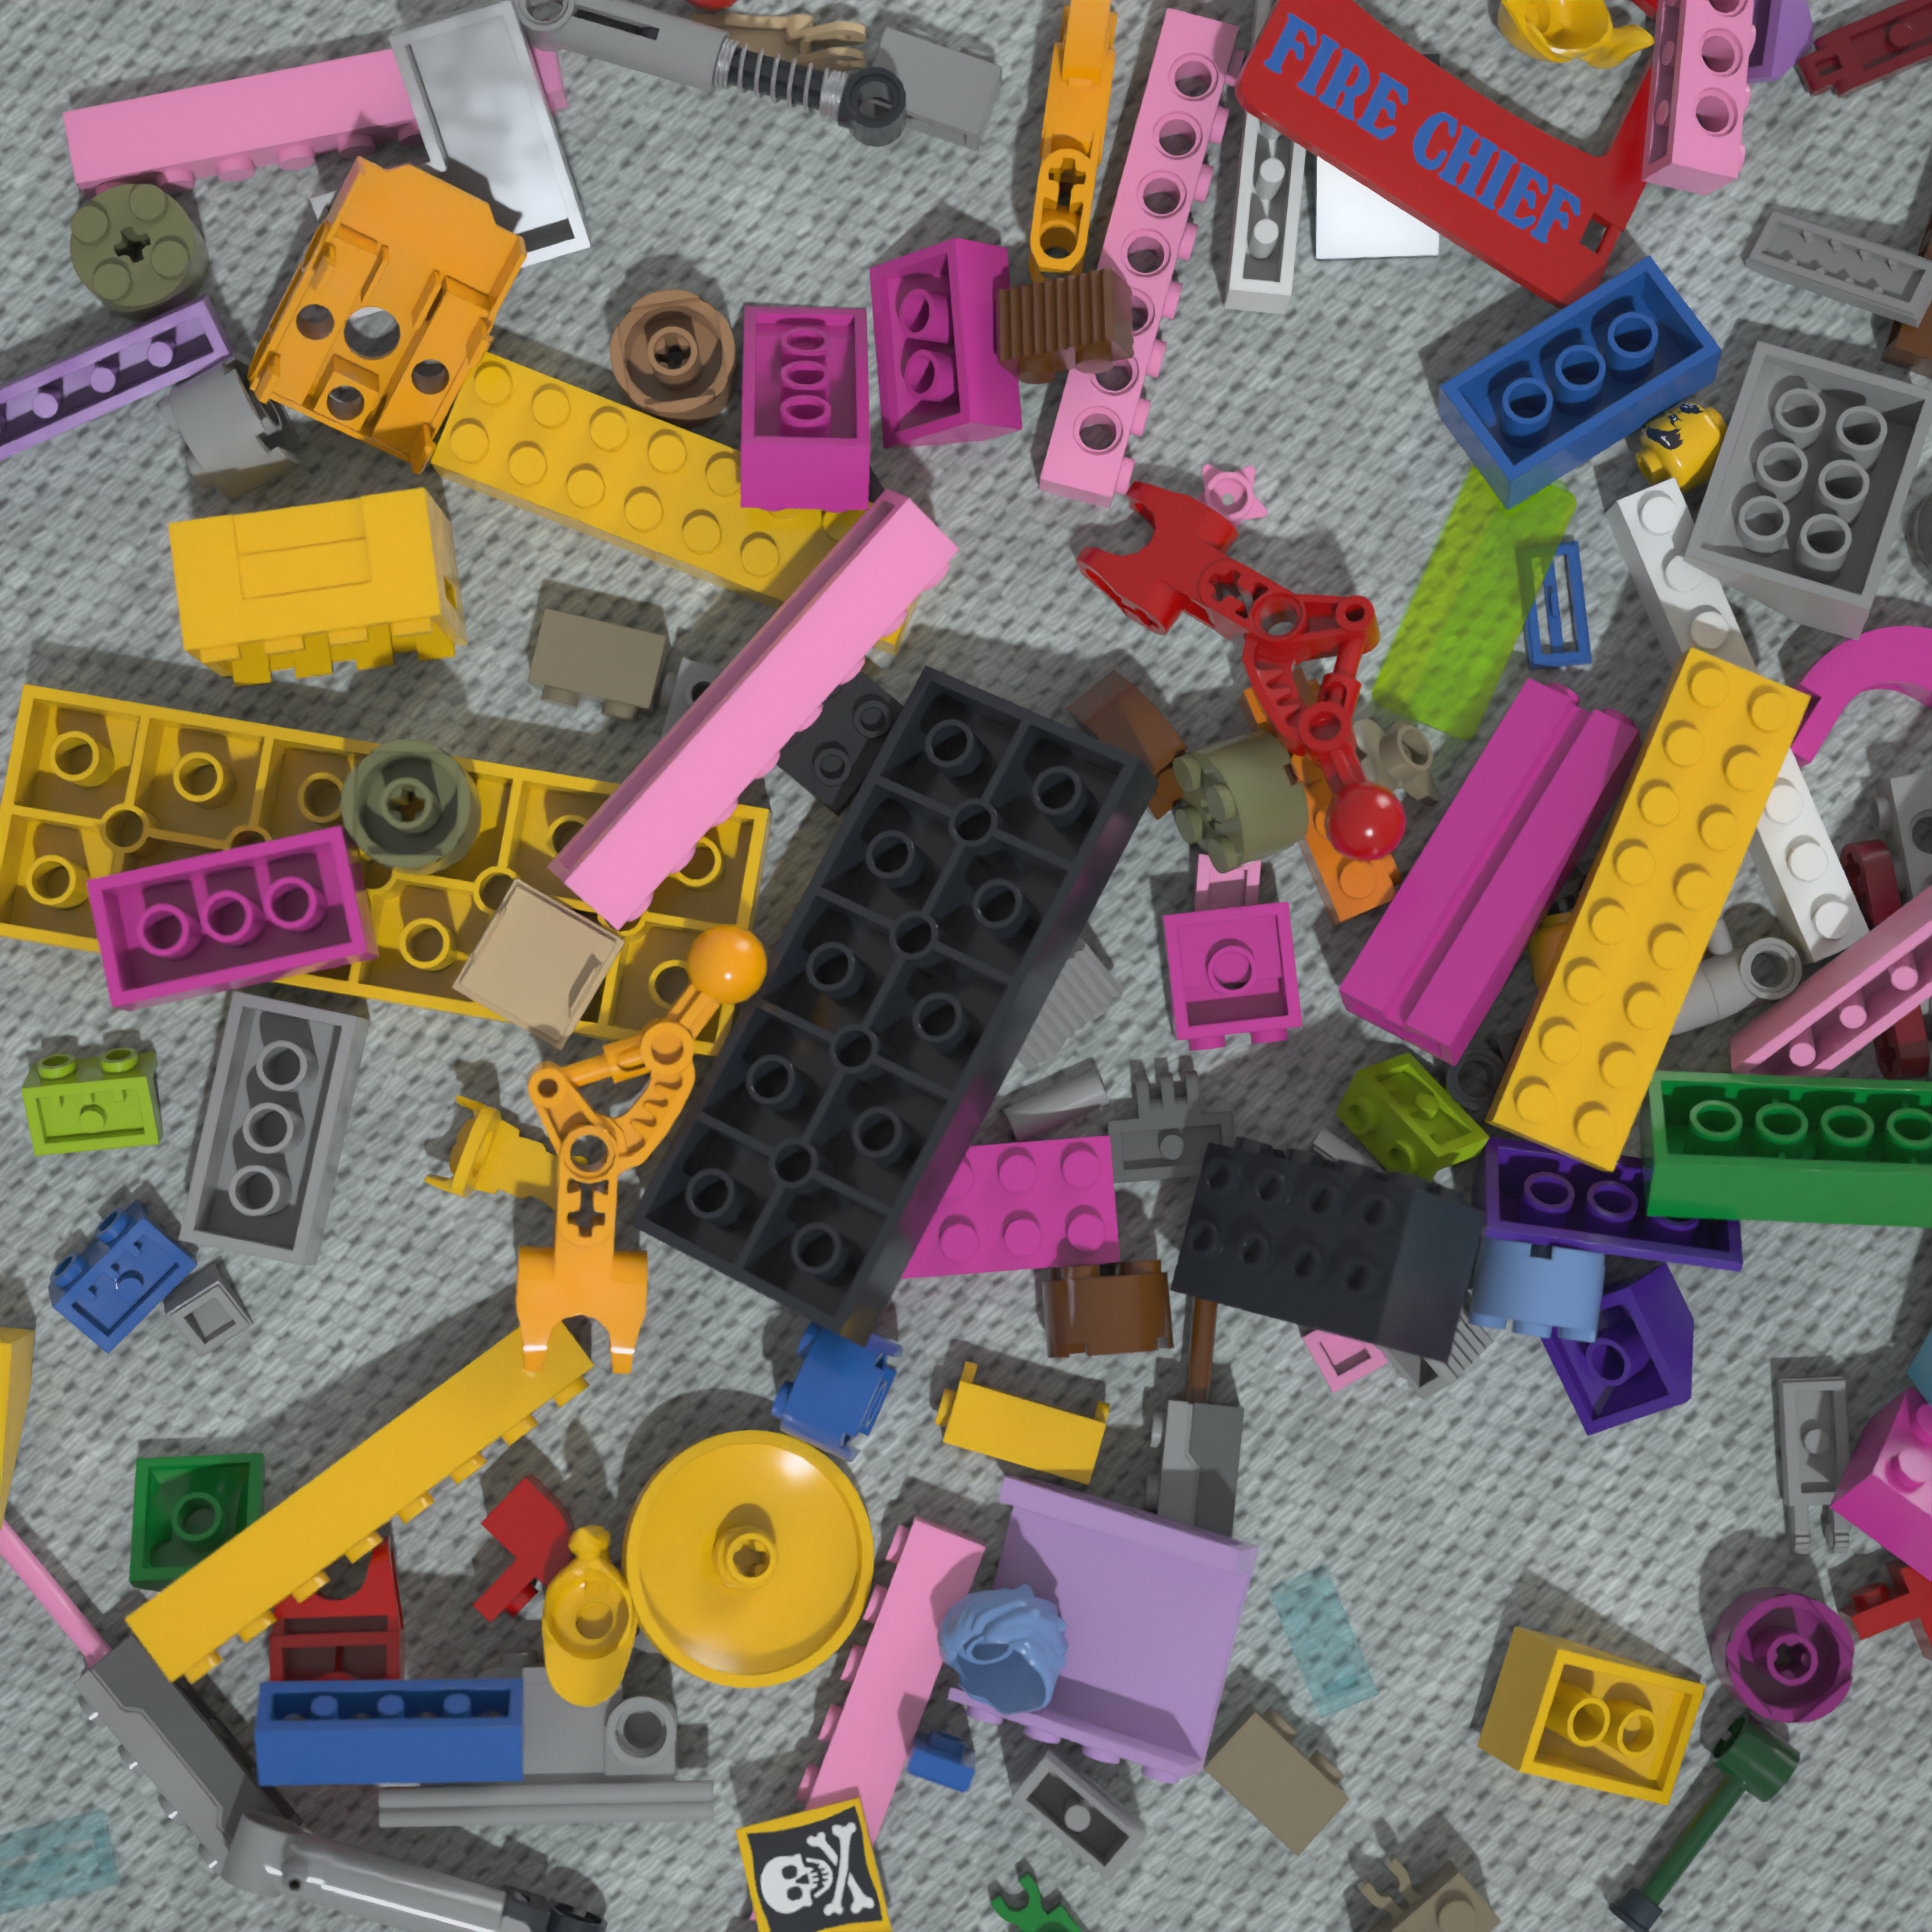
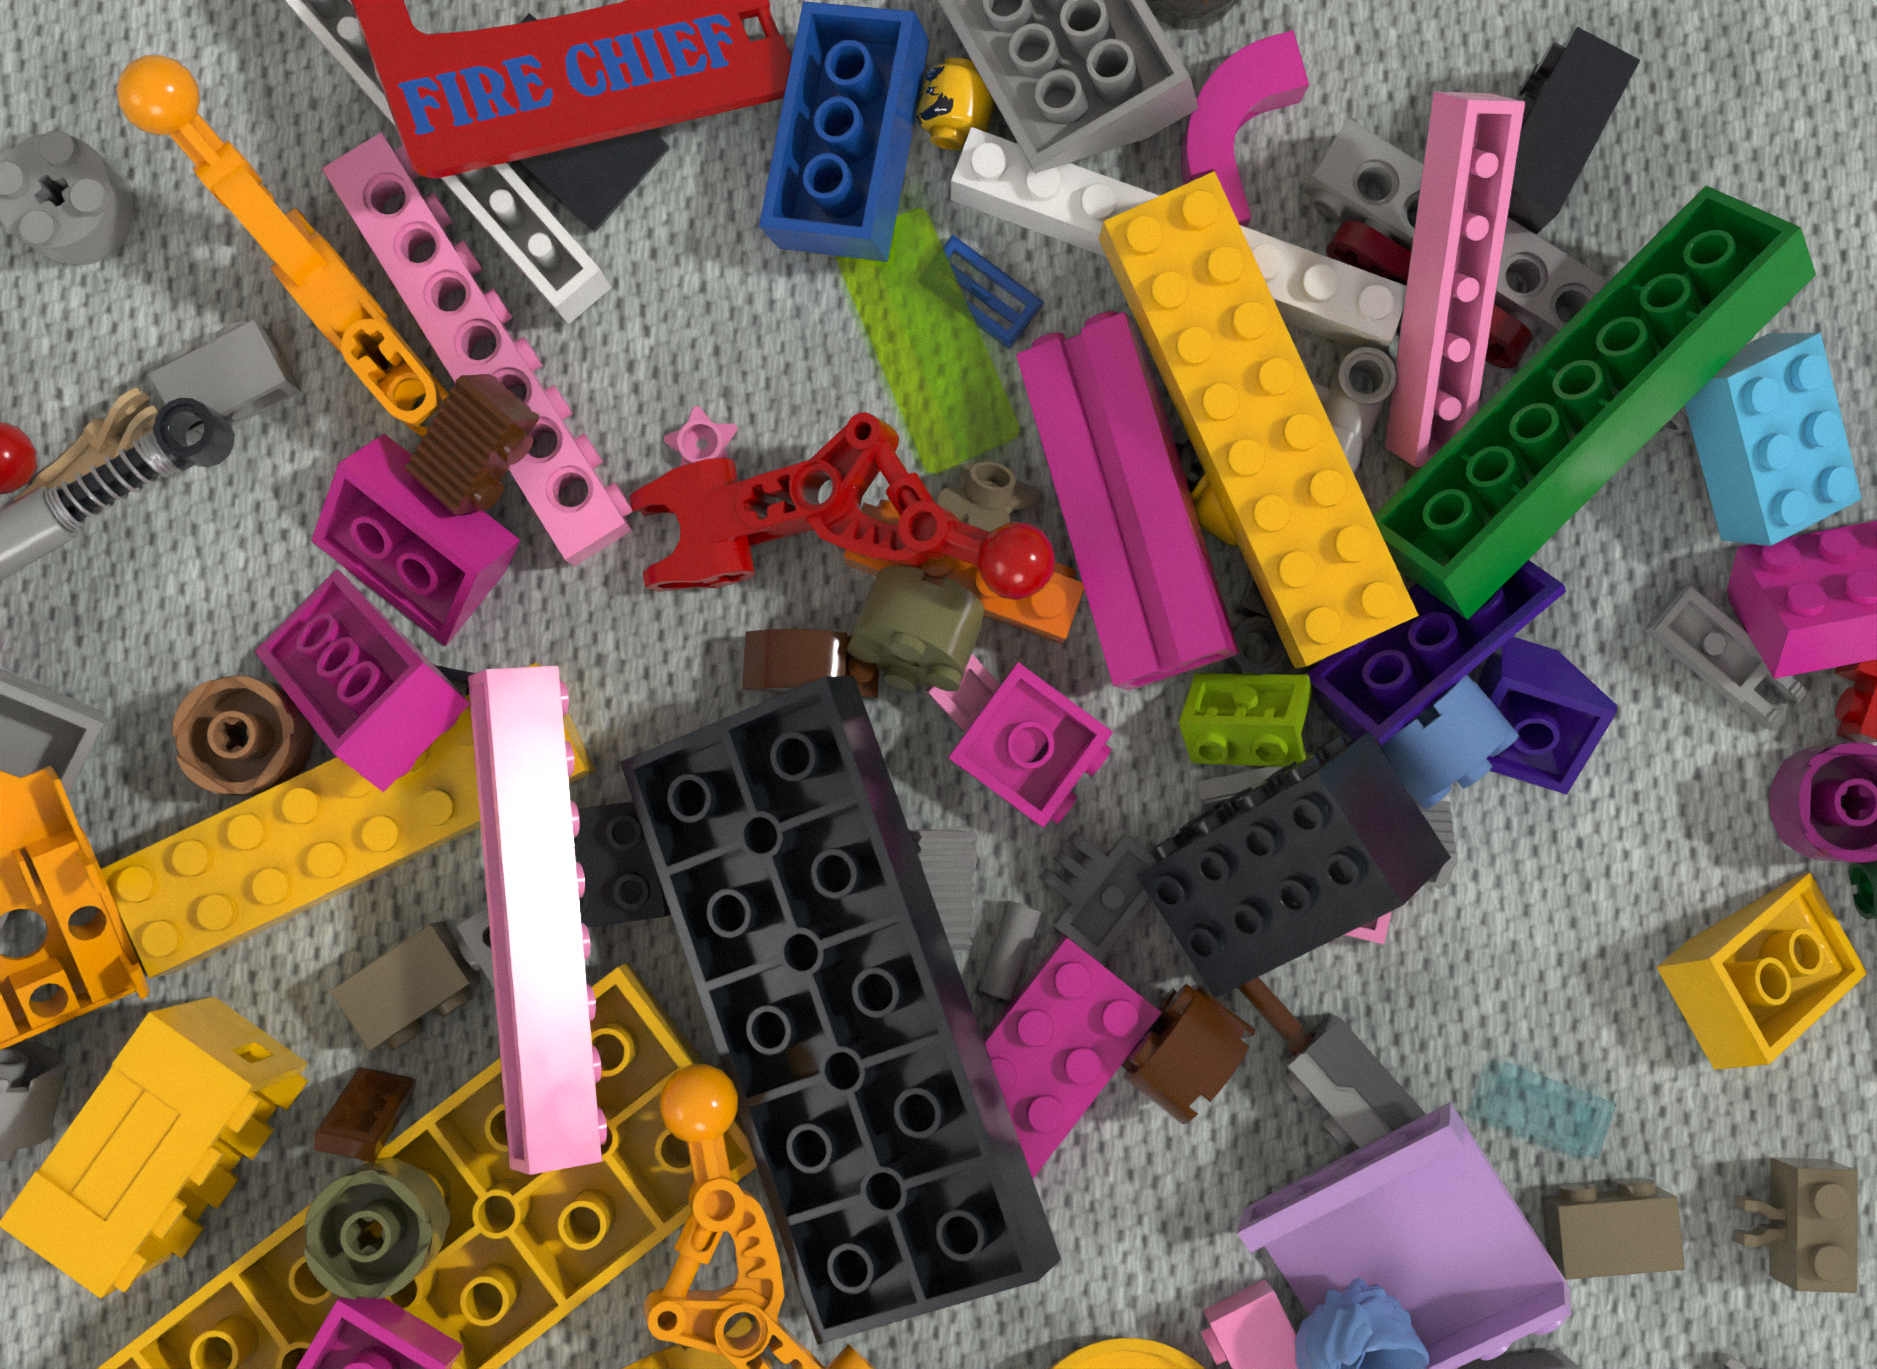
camera: 50 degrees left, 0 degrees up
(477, 722) = (365, 1114): none -> reddish brown plate
(538, 964) = (574, 1233): tan piece -> none
(835, 1390) = (1073, 1298): blue brick -> none
(1021, 1428) = (1212, 1184): yellow brick -> none

